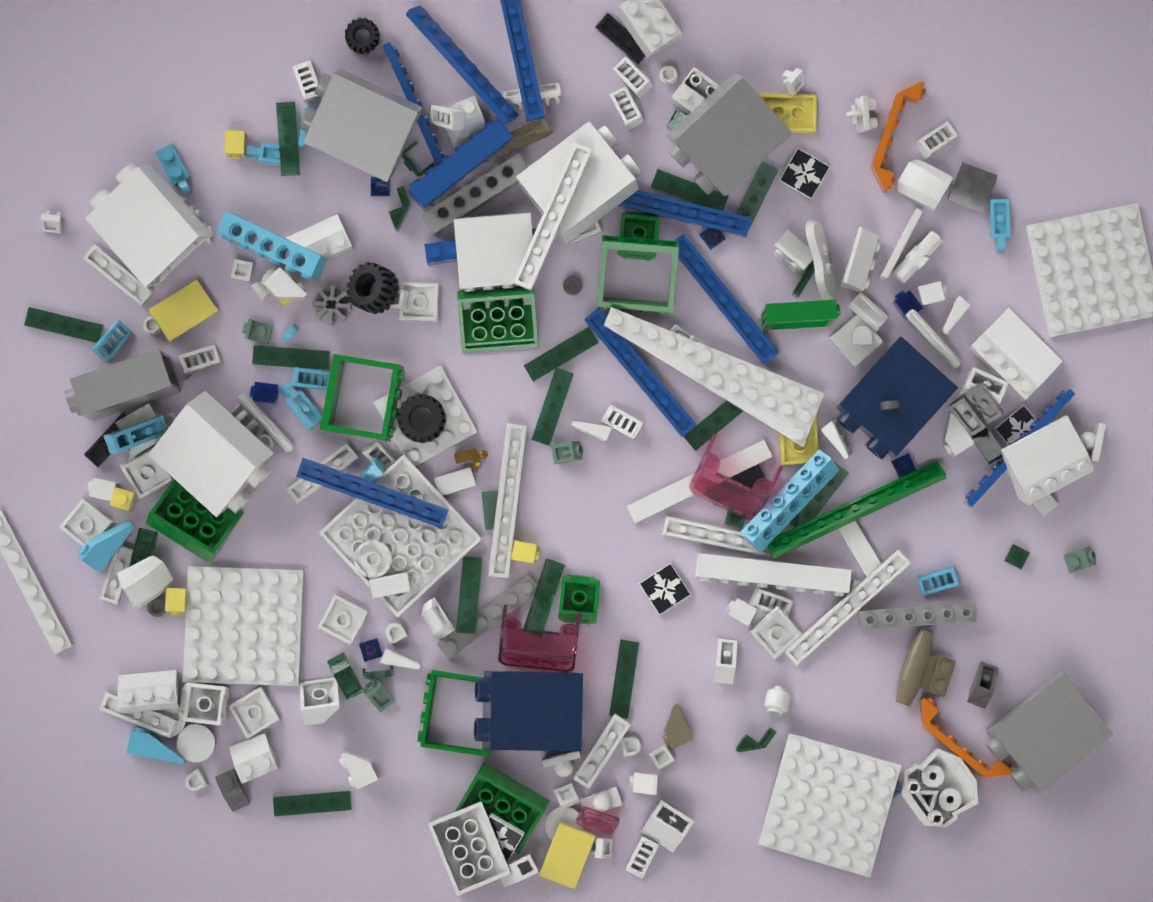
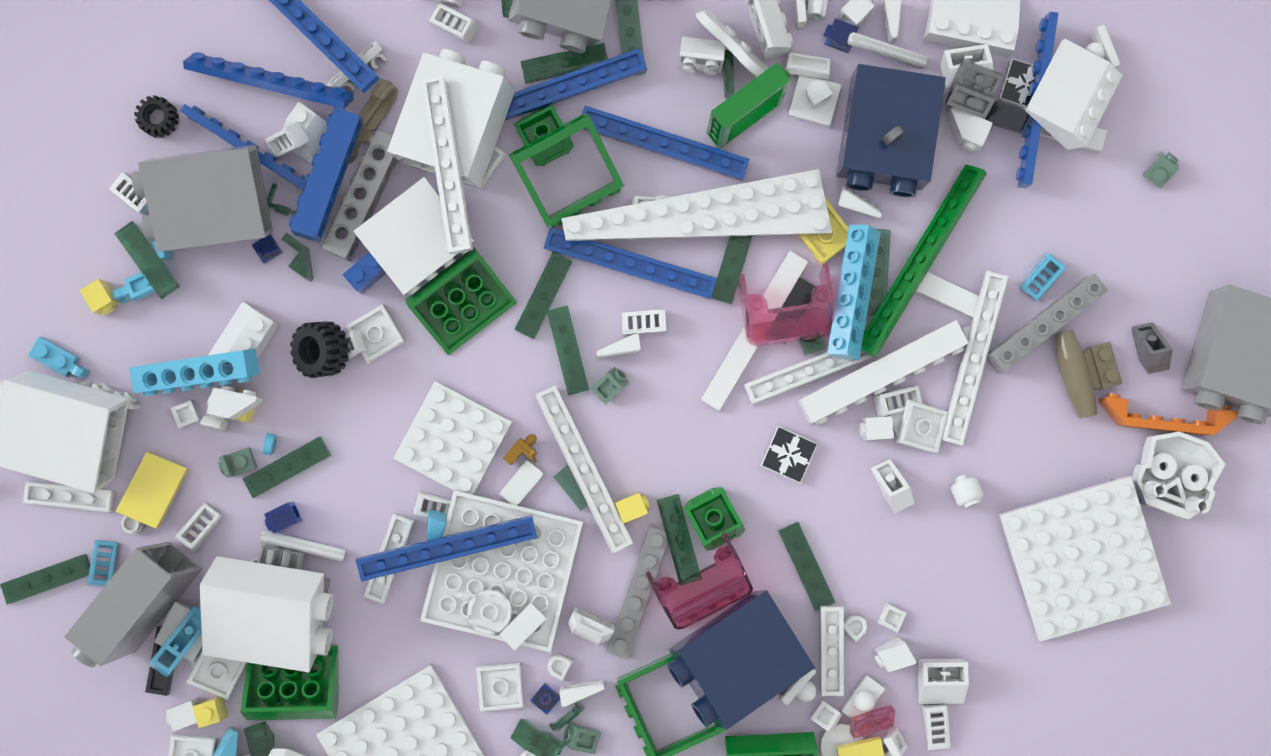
camera: 25 degrees left, 0 degrees up
(267, 440) = (313, 563): white plate -> none
(295, 375) = (300, 475): medium azure slope -> none
(301, 406) = (326, 507): medium azure plate -> none
(330, 311) = (291, 400): light grey gear -> none
(332, 395) = (349, 476): green window -> none
(413, 403) = (429, 444): black tyre -> none
(469, 595) = (606, 584): clear green tile -> none
(572, 285) = (511, 223): flat silver tile -> none
(676, 729) = (889, 582): dark tan slope -> none
(712, 238) = (614, 92): clear blue tile -> none
(748, 743) = (967, 551): clear green slope -> none
(903, 465) = (937, 190): clear blue tile -> none
(1016, 556) = (1100, 206): clear green plate -> none

